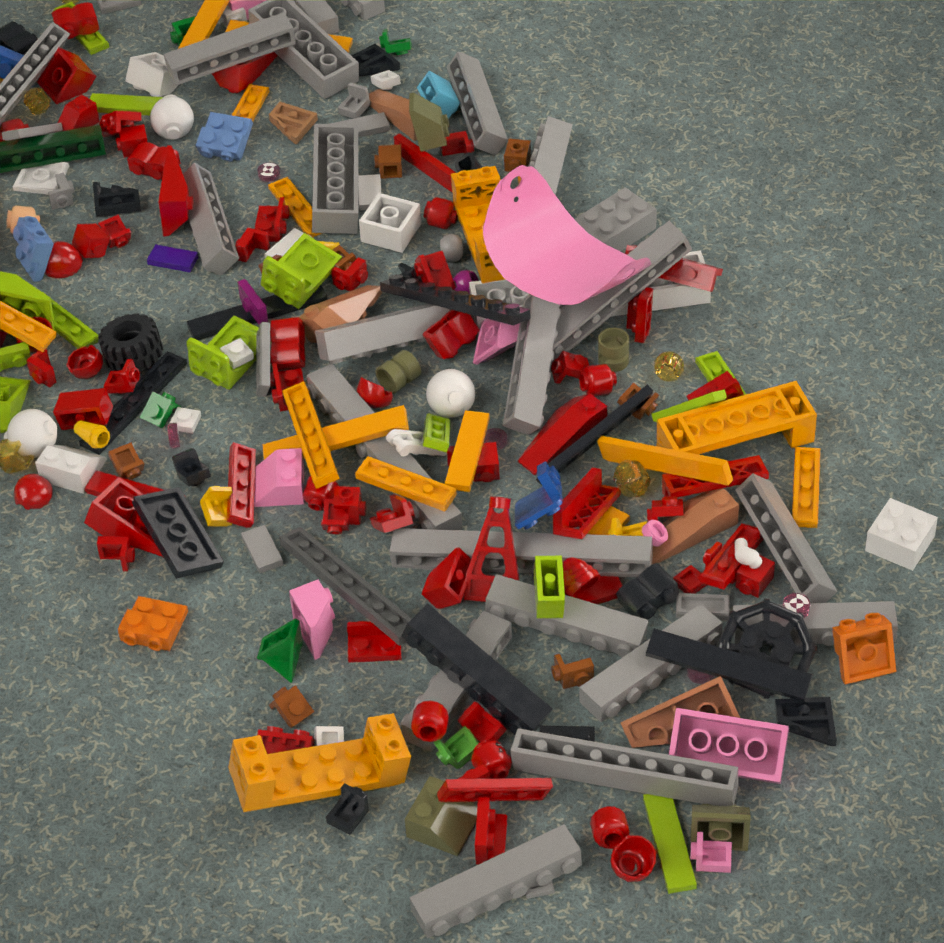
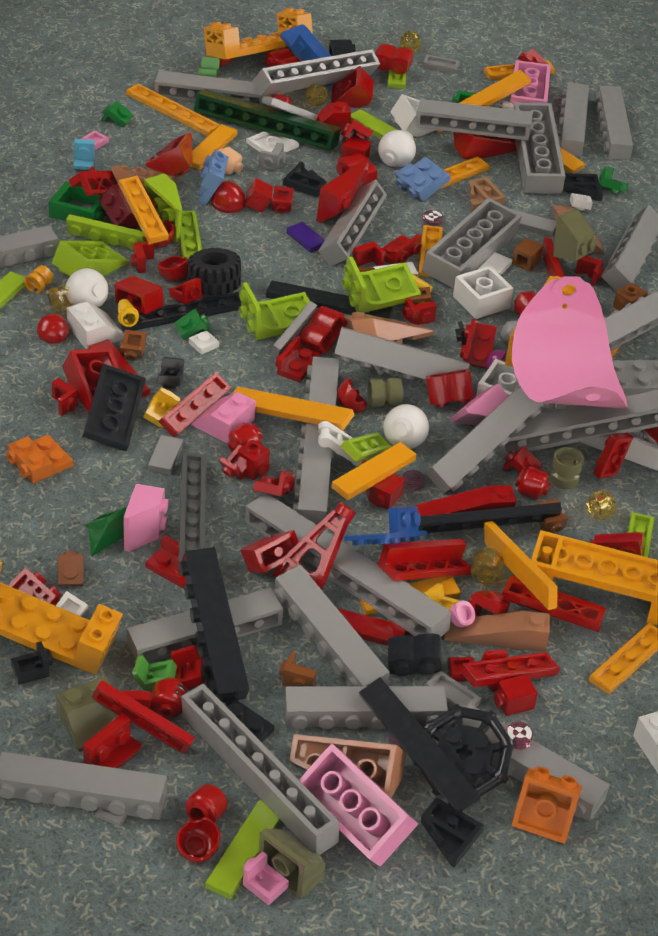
camera: 30 degrees right, 5 degrees down
(173, 435) = (183, 345): clear pink tile -> none
(238, 353) = (279, 316): white plate -> none
(252, 302) = (325, 288): magenta plate -> none
(310, 435) = (270, 396): light orange tile -> none
(356, 102) = (542, 205): light grey bracket -> none
(406, 483) = (305, 467): light orange tile -> none
(429, 721) = (143, 636): red head -> none
(439, 92) = (608, 228): medium azure brick -> none
(455, 300) = (467, 362): black plate -> none
(549, 586) = (324, 594): lime brick -> none
(578, 576) = (361, 606): red hat -> none
(701, 401) = (591, 537): lime tile -> none
(746, 555) = (515, 672): white arm -> none
(785, 539) = (565, 685): light grey brick -> none

